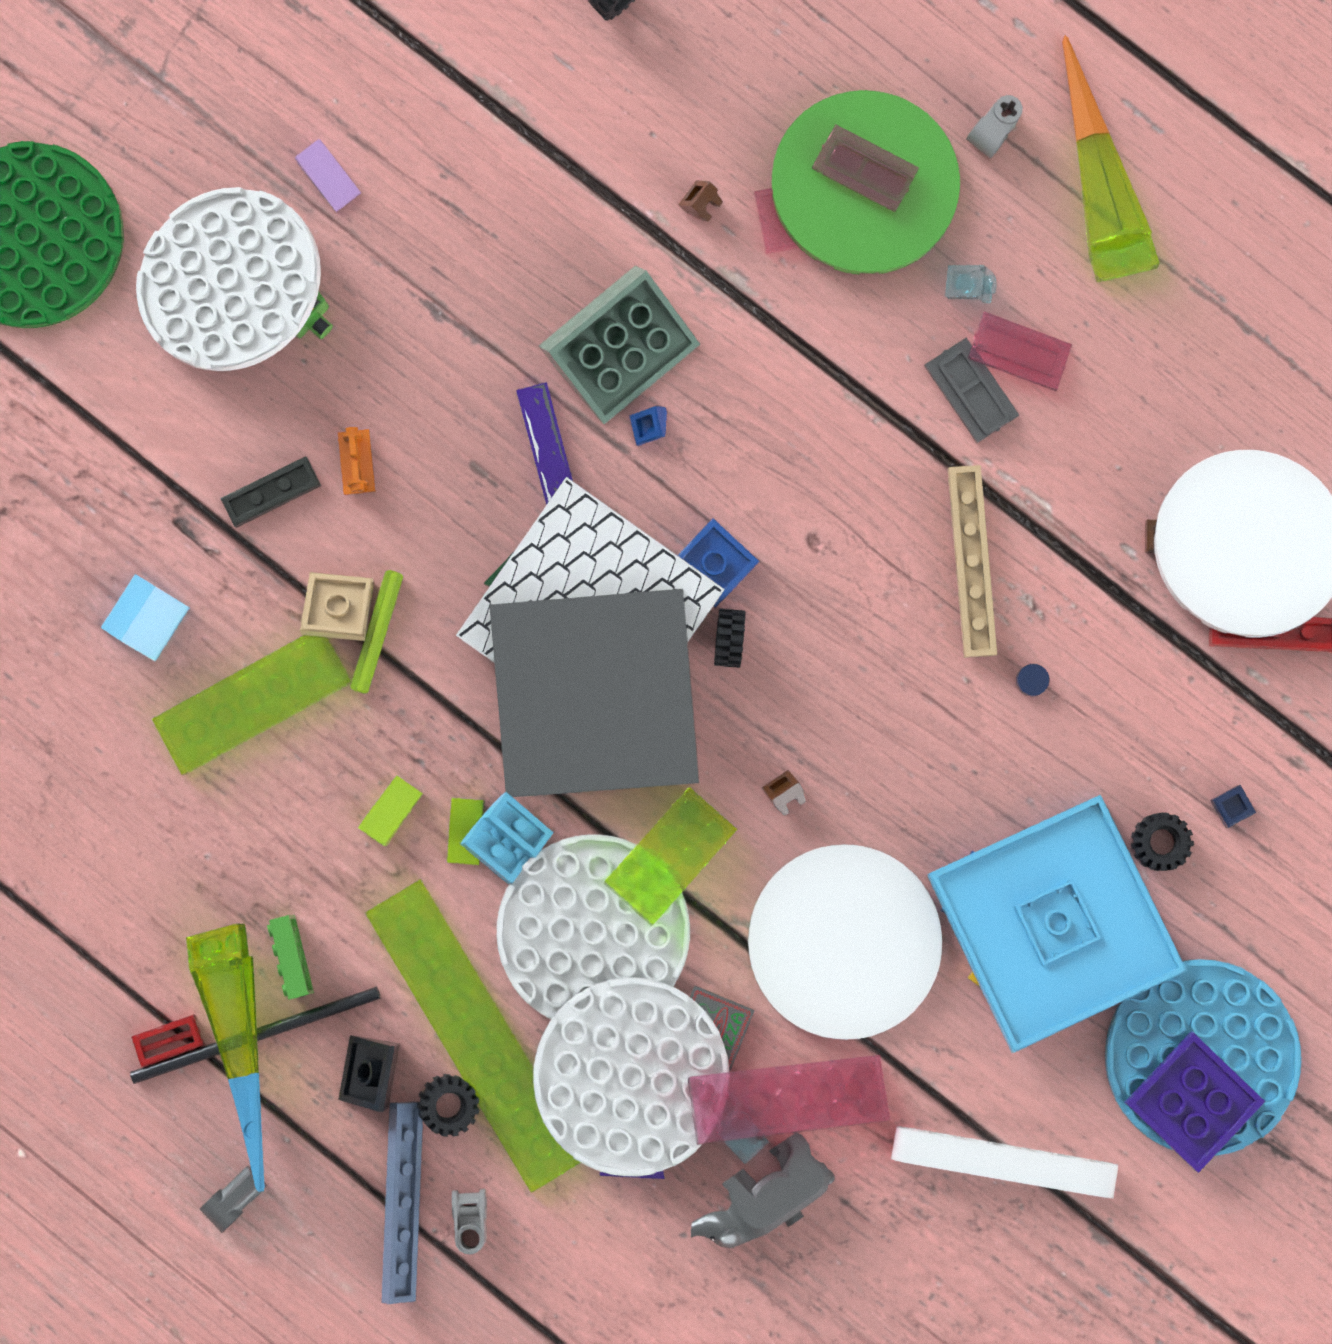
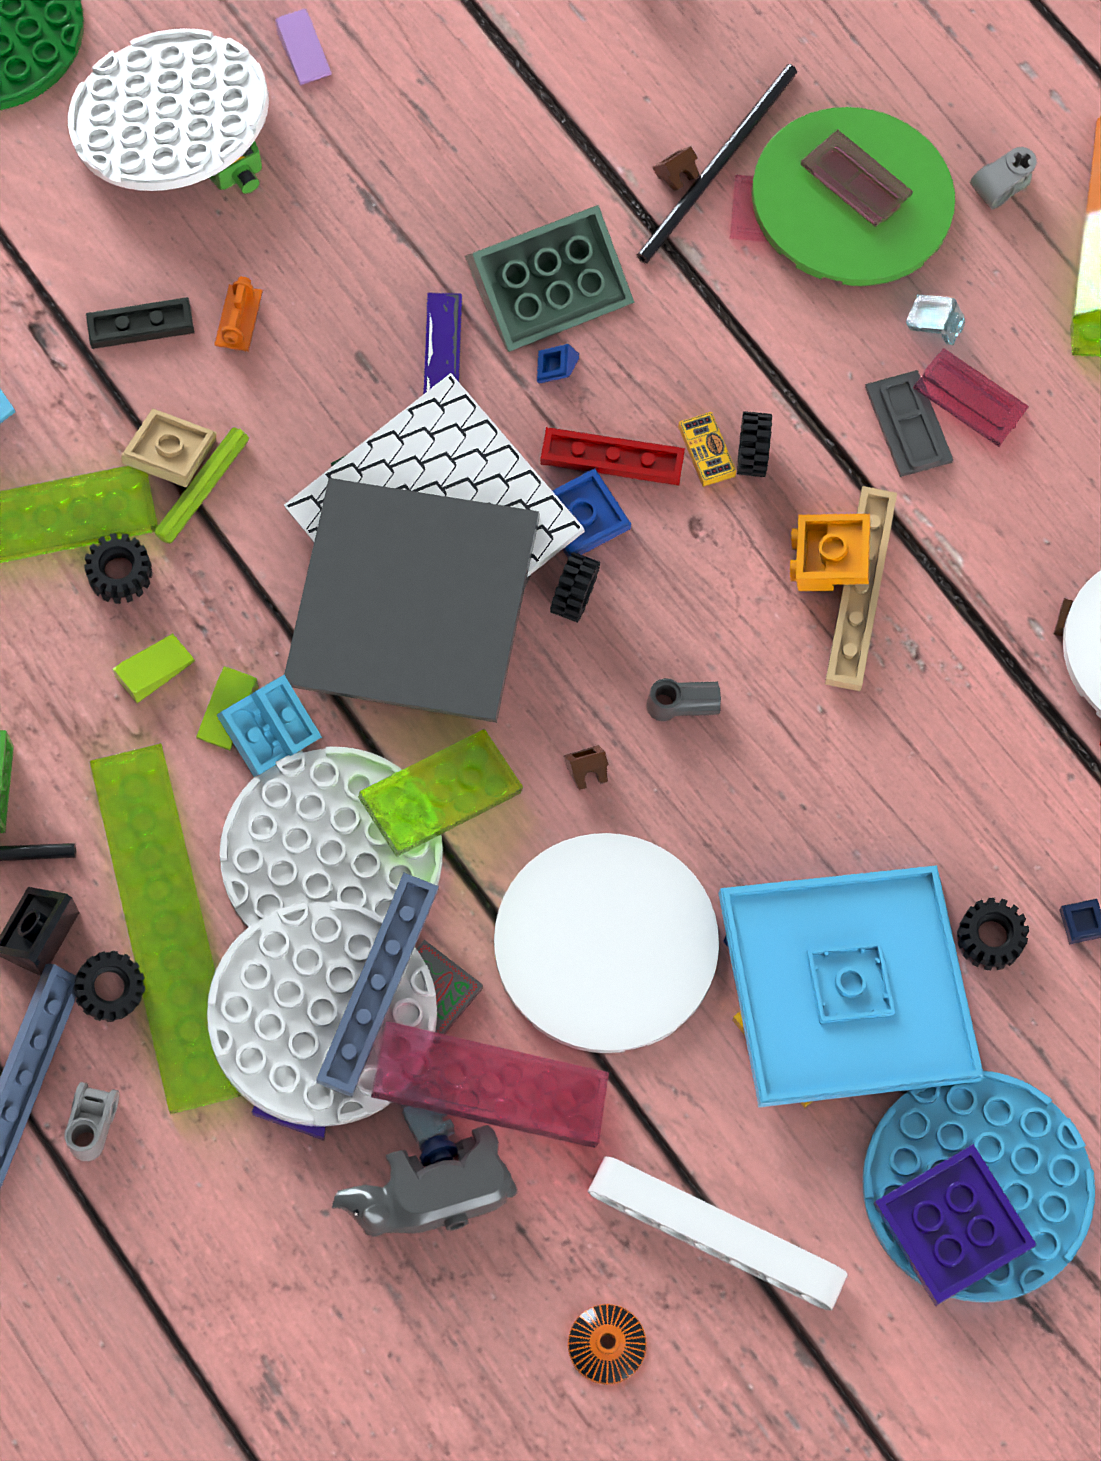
camera: 15 degrees right, 15 degrees down
(311, 726) = (111, 550): none -> black tyre
(671, 1044) = (377, 985): none -> sand blue plate
(724, 500) = (612, 456): none -> red plate
(735, 183) = (716, 164): none -> black piece
(761, 1164) = (437, 1149): none -> dark blue plate
(803, 467) = (707, 449): none -> tile
(846, 457) = (754, 444): none -> black tyre
(852, 708) = (687, 699): none -> dark grey piece
(935, 1258) = (603, 1364): none -> dish
(939, 539) = (830, 551): none -> light orange plate
(1032, 680) = (894, 727): dark blue tile -> none

